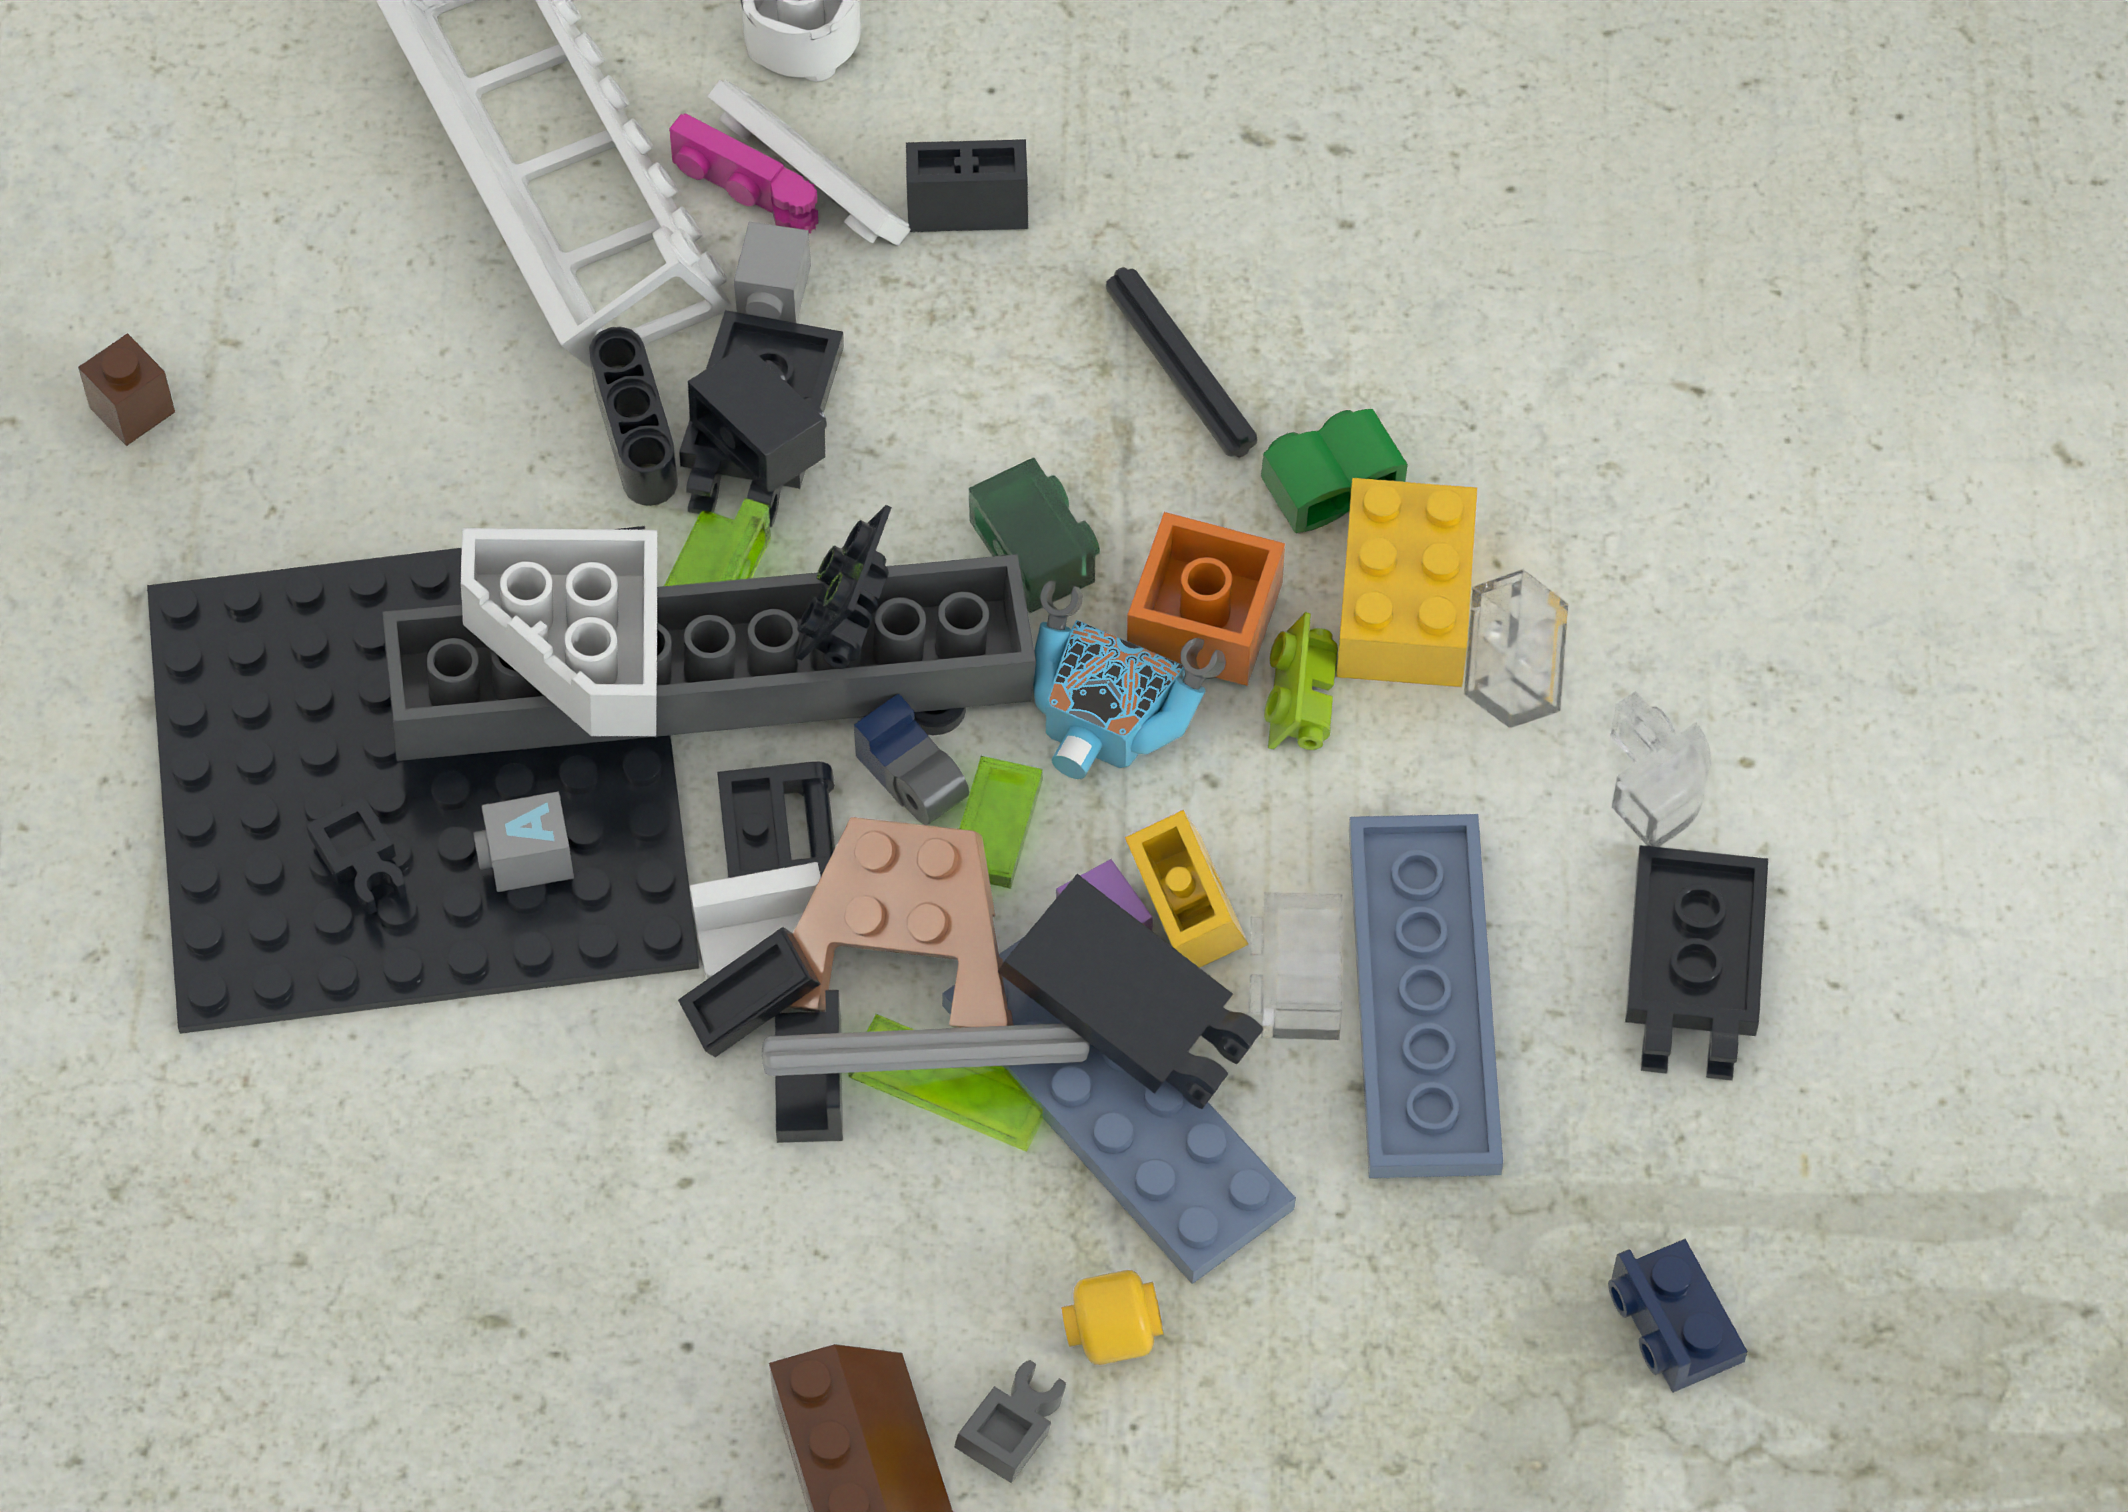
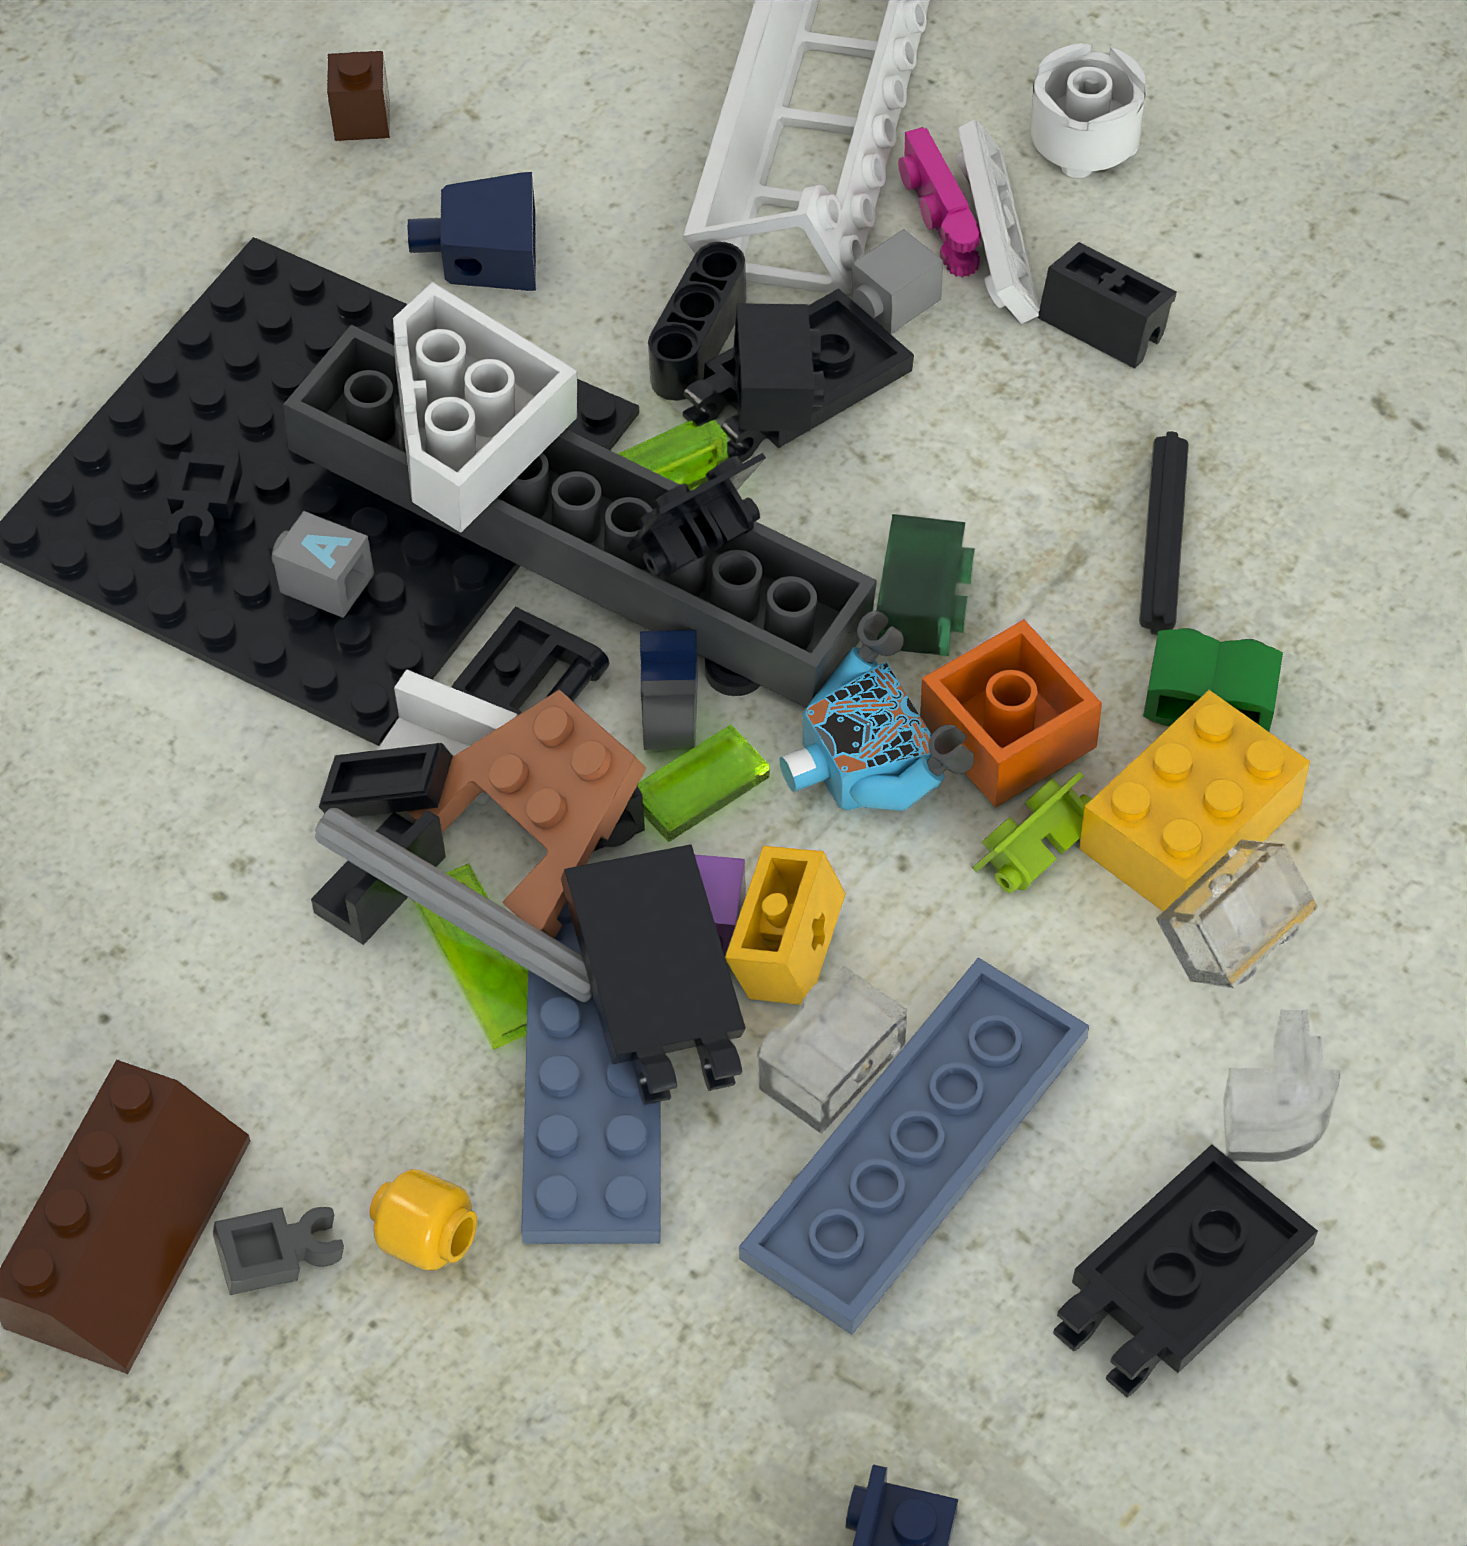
camera: 40 degrees right, 5 degrees down
(368, 450) = (483, 233): none -> dark blue torso

